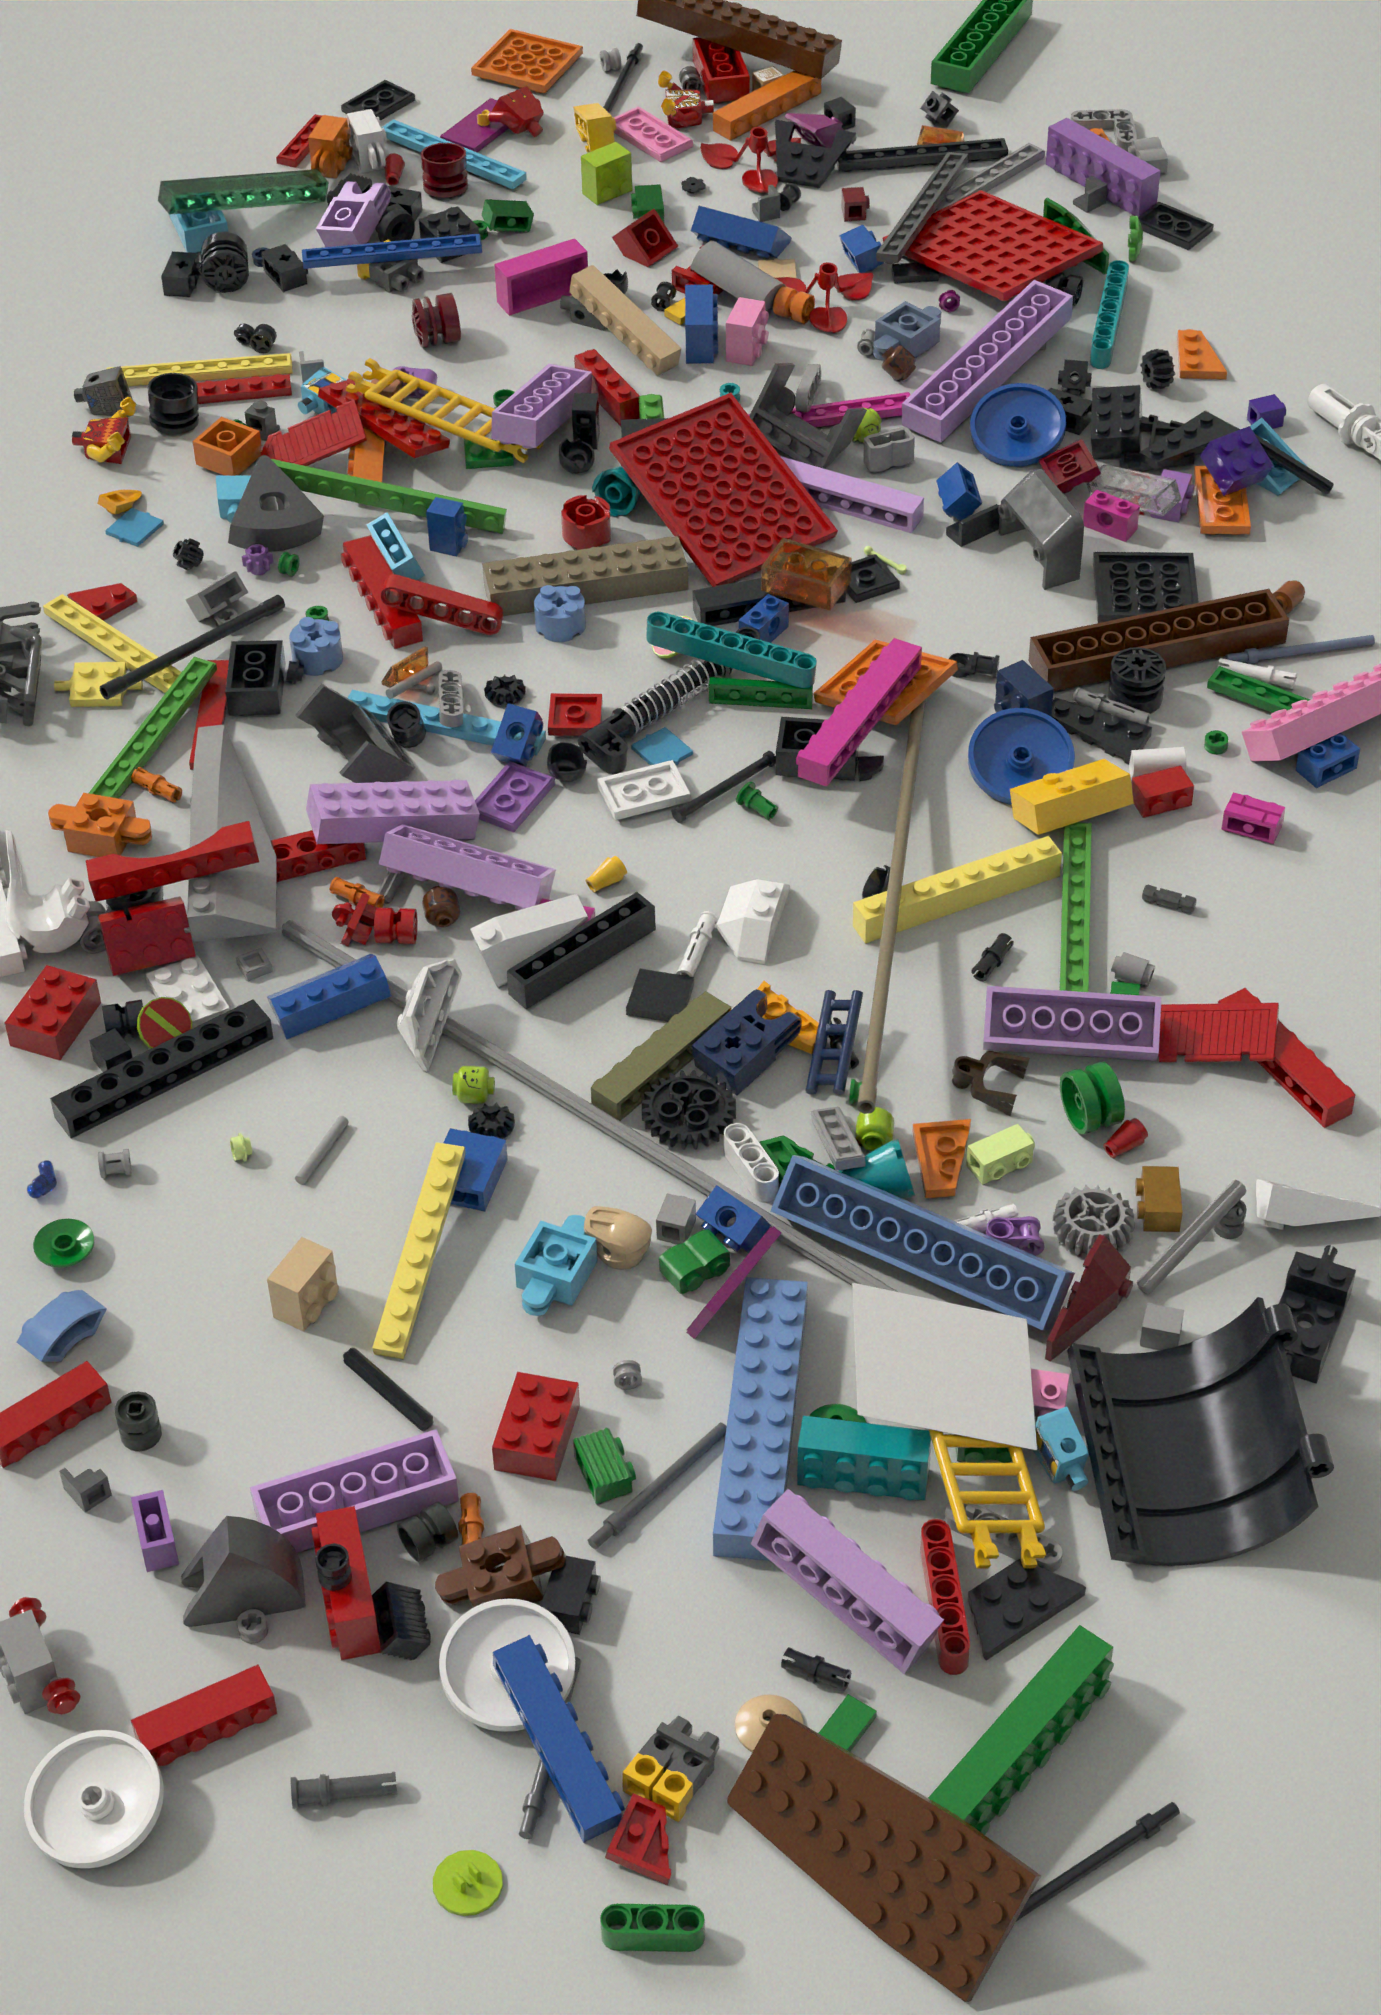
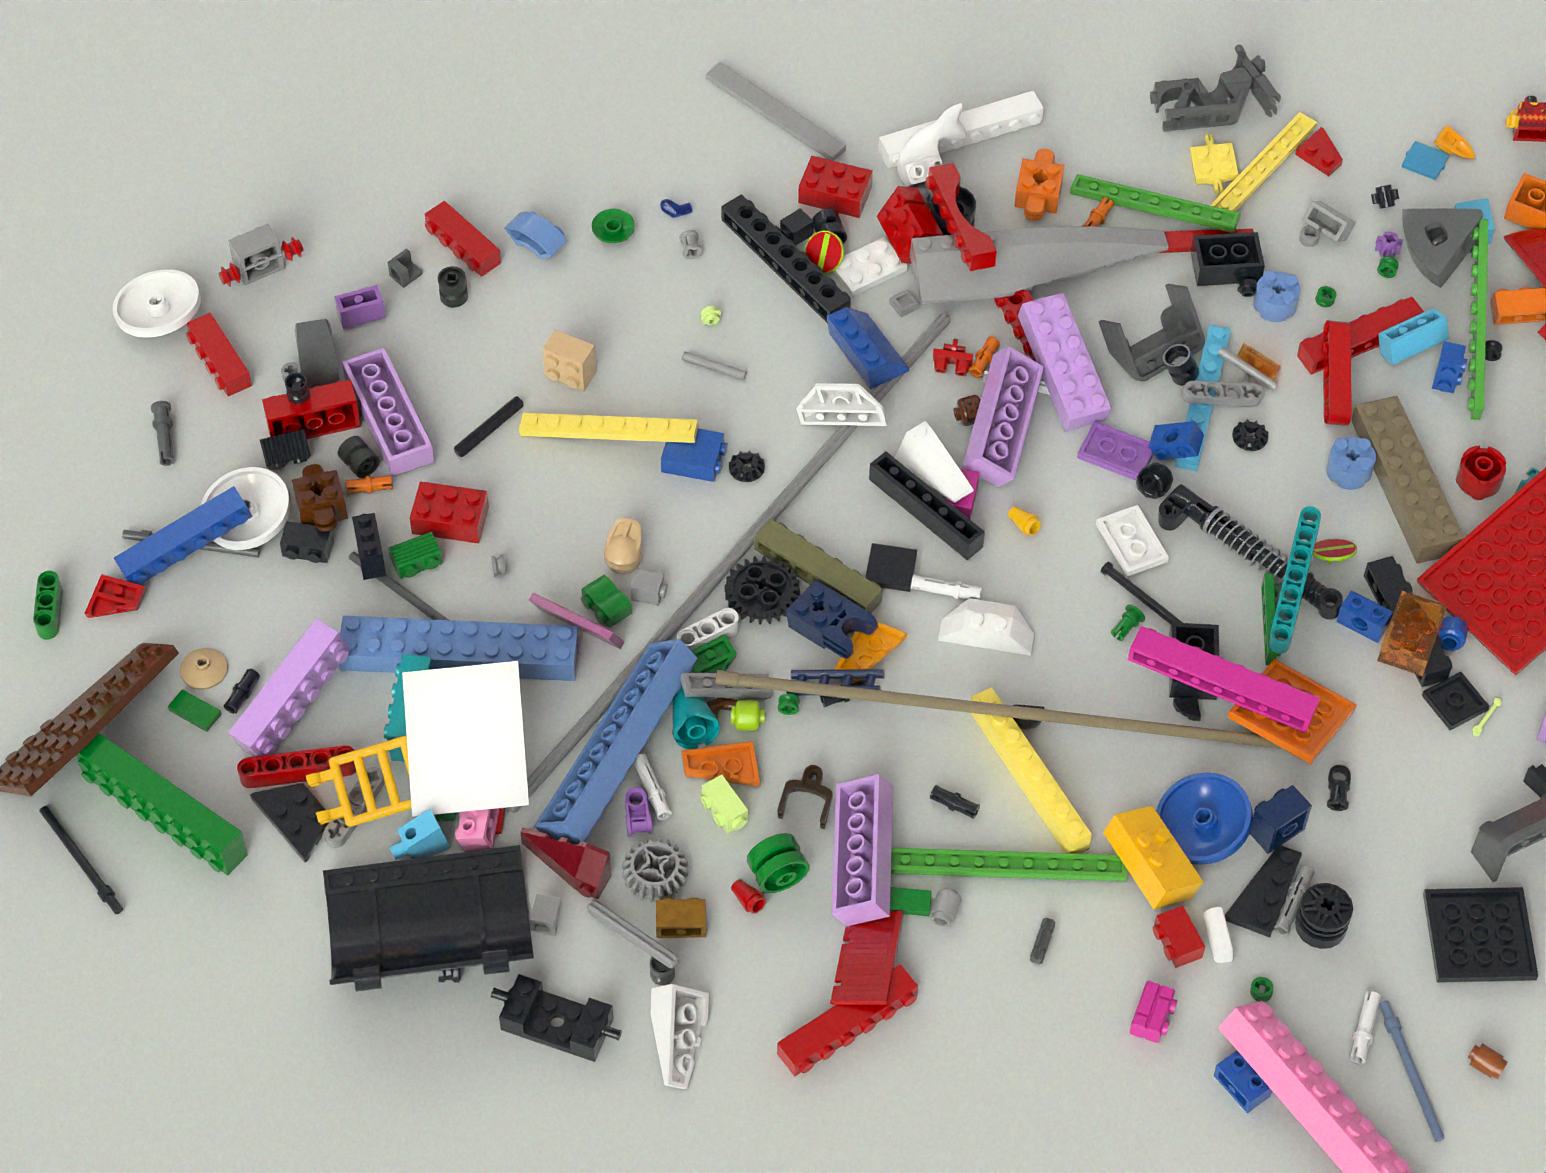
camera: 85 degrees right, 10 degrees up
(121, 683) = (1324, 257): black piece -> none
(395, 925) = (945, 383): red wheel -> none
(467, 1882) = (95, 508): lime piece -> none
(473, 1084) = (777, 447): lime head -> none
(555, 1264) = (593, 500): medium azure brick -> none
(573, 713) = (1223, 485): red plate -> none
(613, 1497) = (369, 546): none -> black arch
(662, 747) = (1192, 554): dark azure piece -> none
(671, 1766) = (165, 609): hips -> none
(720, 1208) = (644, 621): blue brick -> none
(1177, 634) = (1393, 940): reddish brown brick -> none
(1251, 690) = (1335, 1024): green plate -> none

